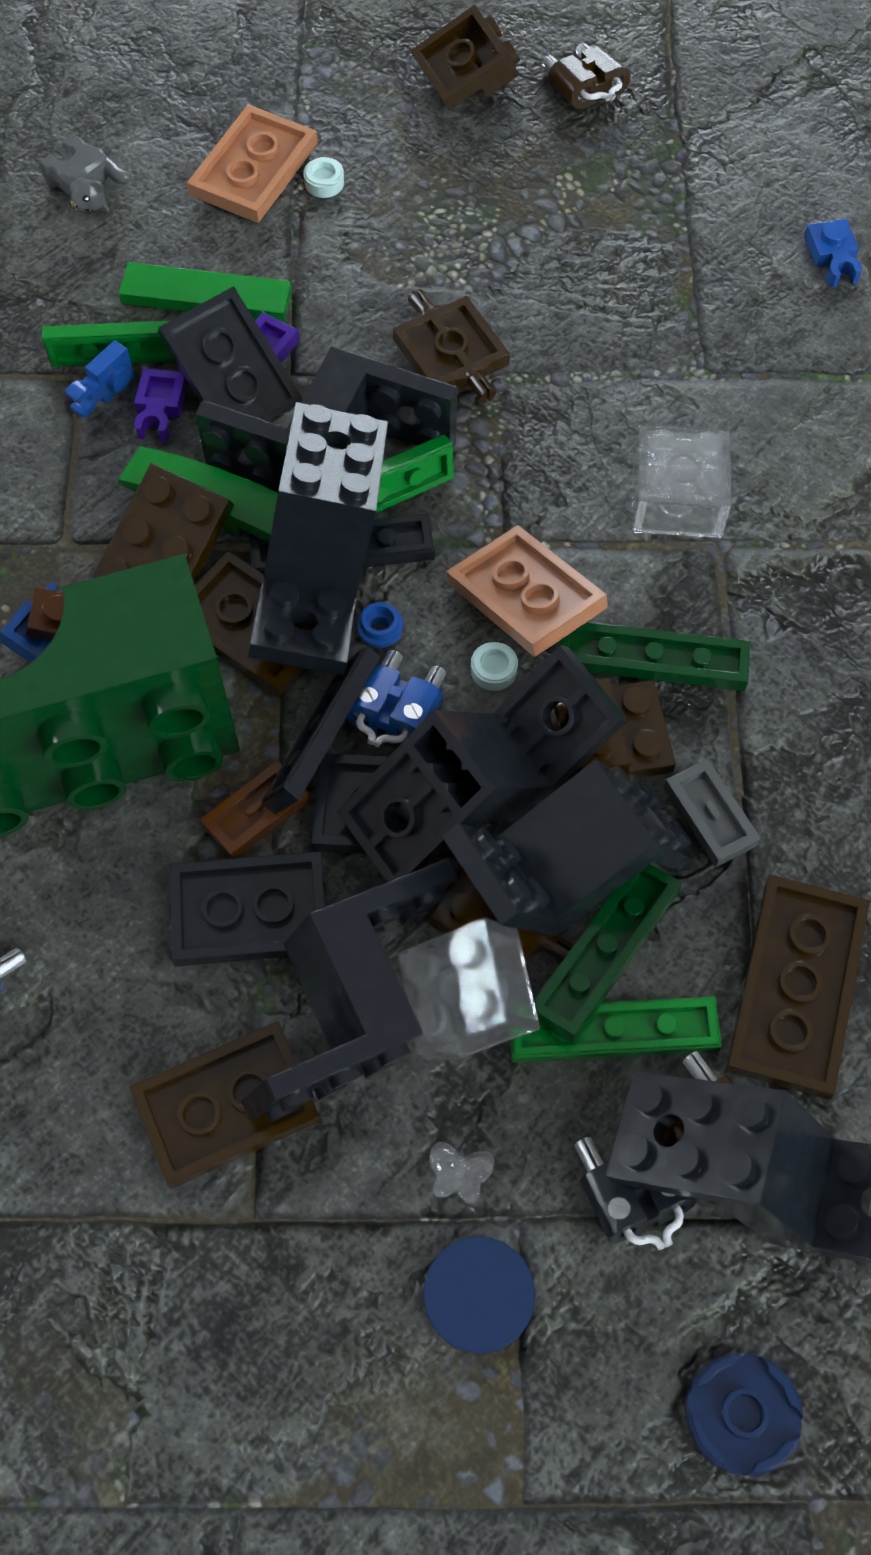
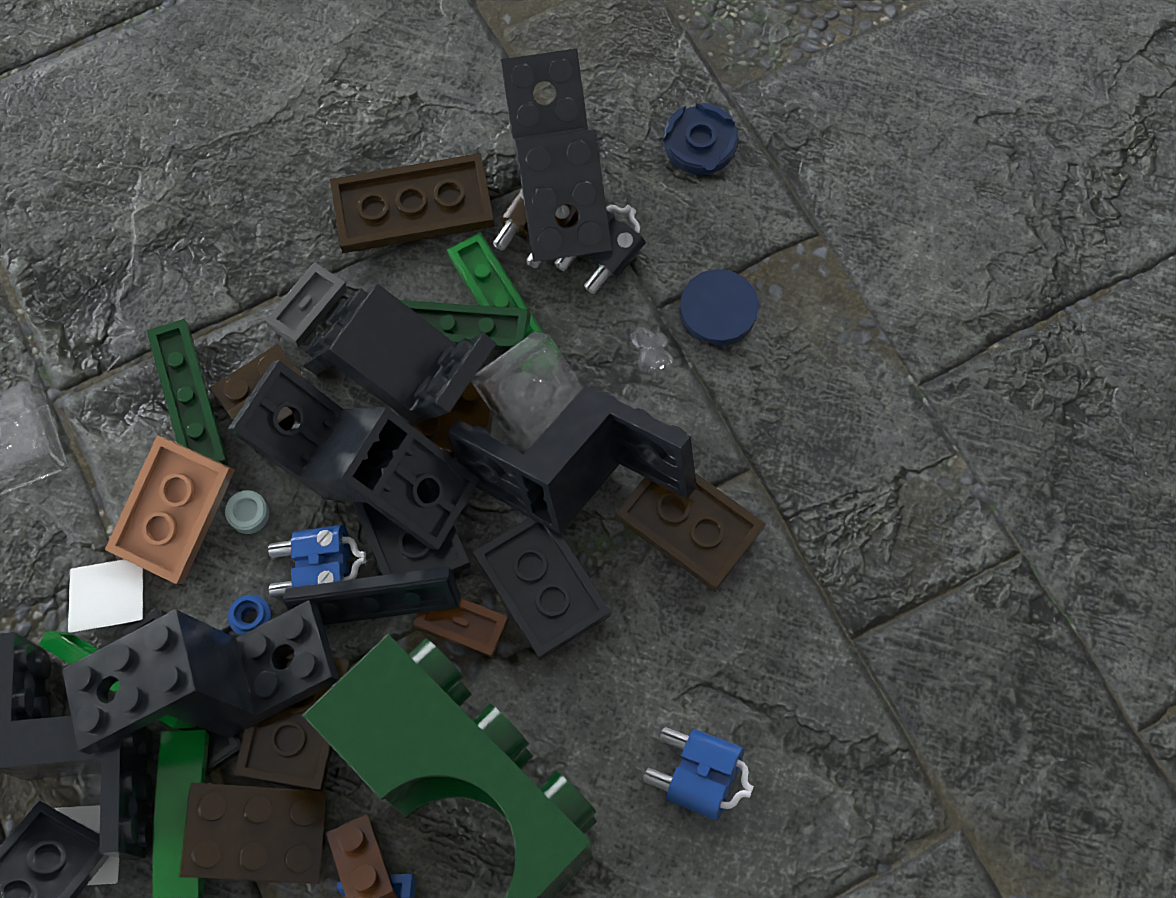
camera: 115 degrees left, 5 degrees up
(472, 512) = (105, 595): none -> white sticker

